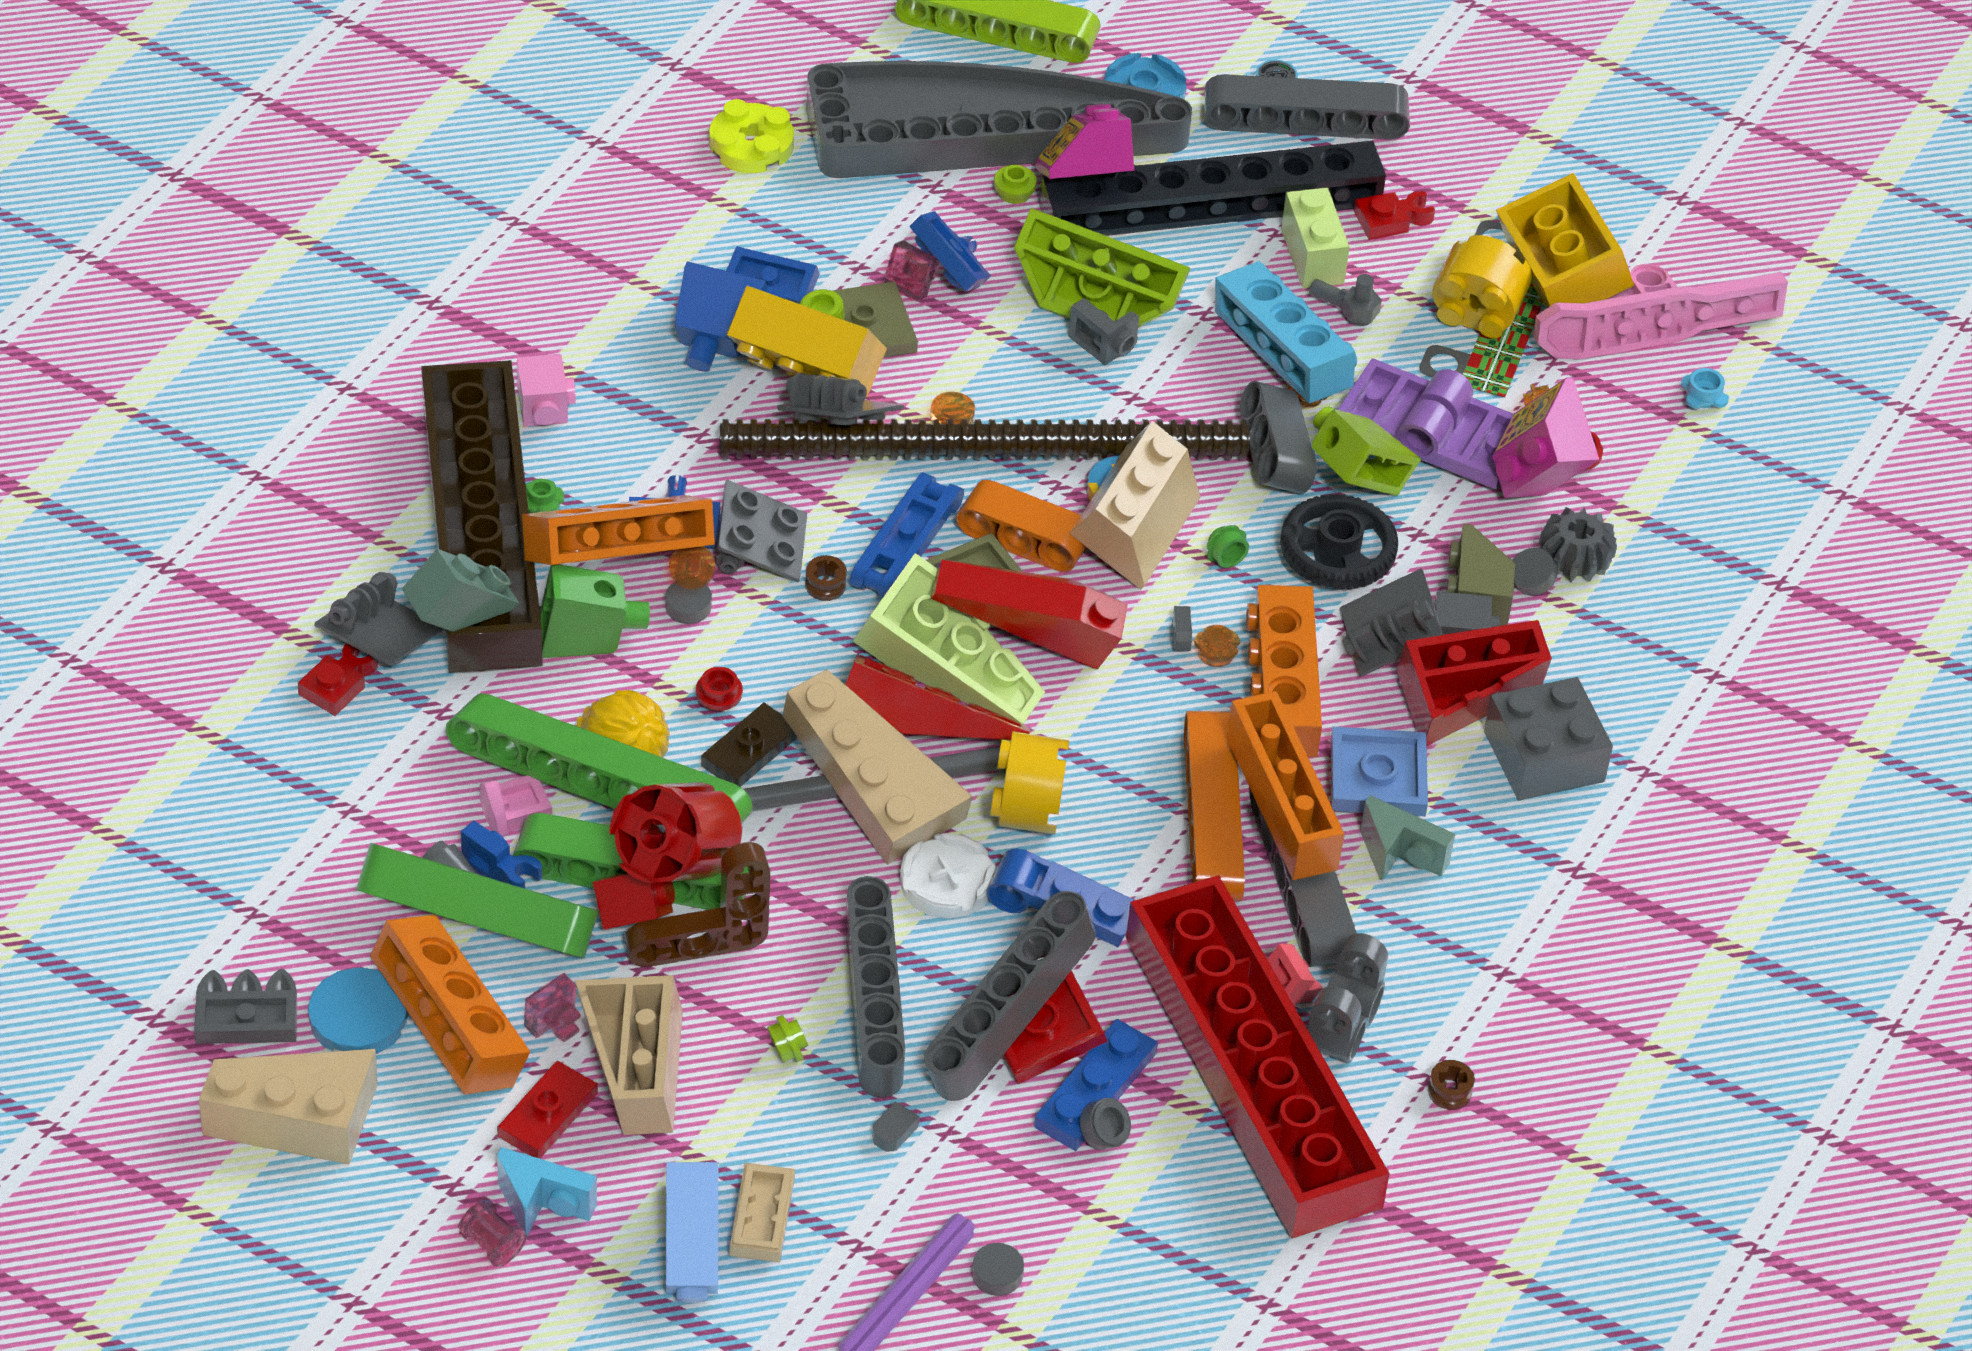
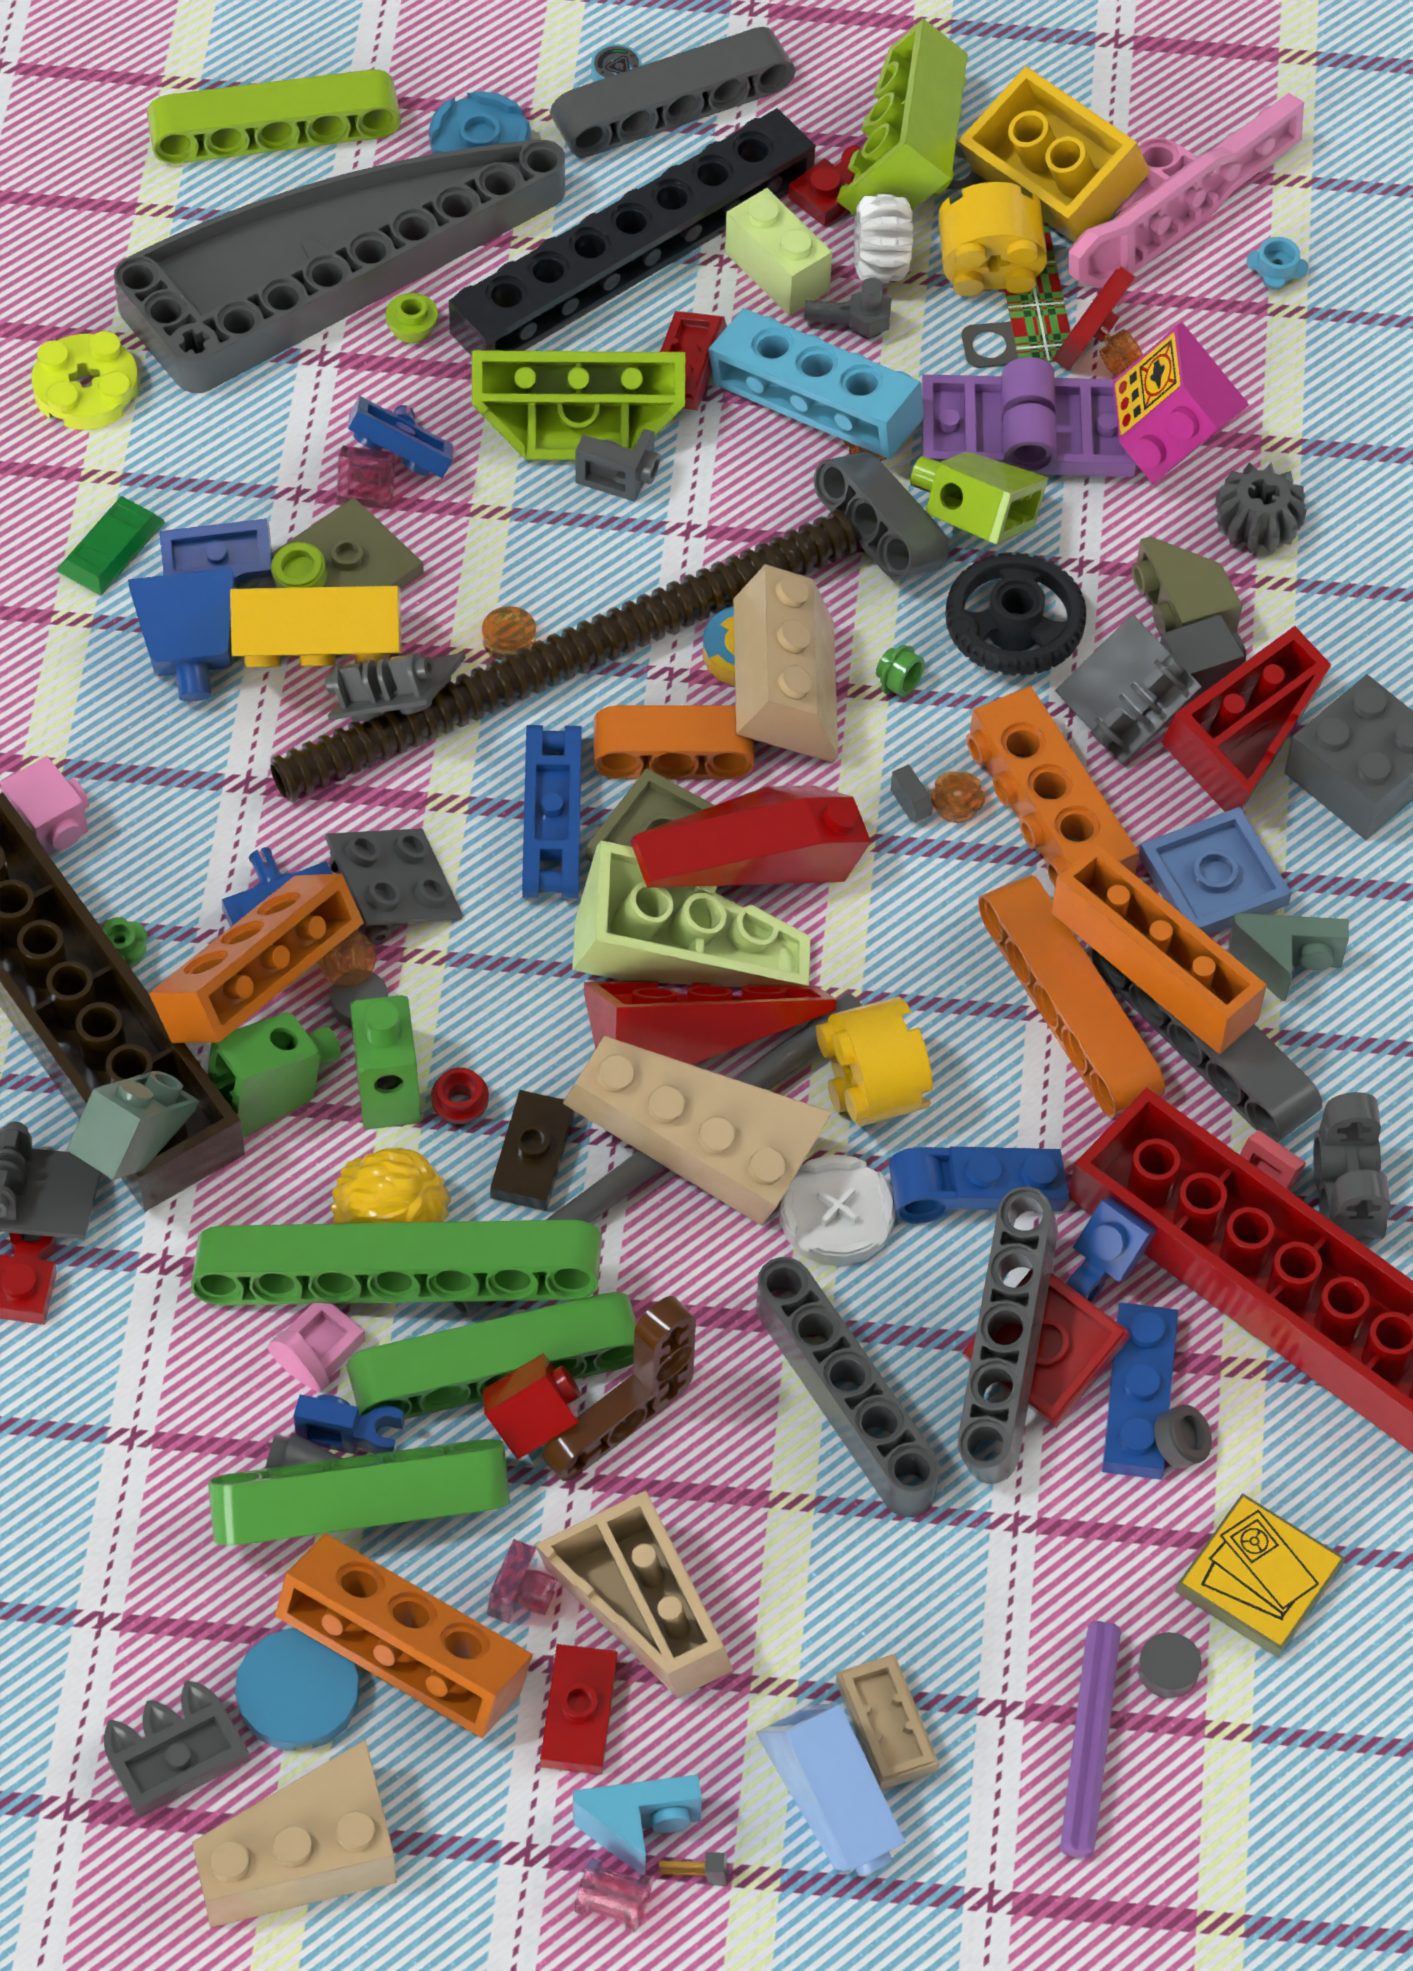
camera: 25 degrees left, 10 degrees up
(575, 1247) = (715, 1869): none -> piece
(674, 831) = (545, 1304): red cylinder -> none
(681, 623) = (383, 1048): none -> bright green torso
(701, 246) = (111, 545): none -> green tile
(787, 1039) = (791, 1496): lime plate -> none
(826, 566) = (489, 886): reddish brown bush -> none
(894, 1127) = (960, 1546): dark grey piece -> none
(1090, 145) = (485, 244): dark pink slope -> none
(1106, 1241) = (1260, 1575): none -> yellow tile
(1129, 974) = (1111, 1245): none -> blue plate
(1200, 282) = (694, 335): none -> red plate
(1399, 256) = (883, 238): none -> white gear
(1467, 191) = (912, 122): none -> lime wedge
(1533, 368) = (1096, 320): none -> red plate
(1534, 571) = (1237, 555): dark grey tile -> none

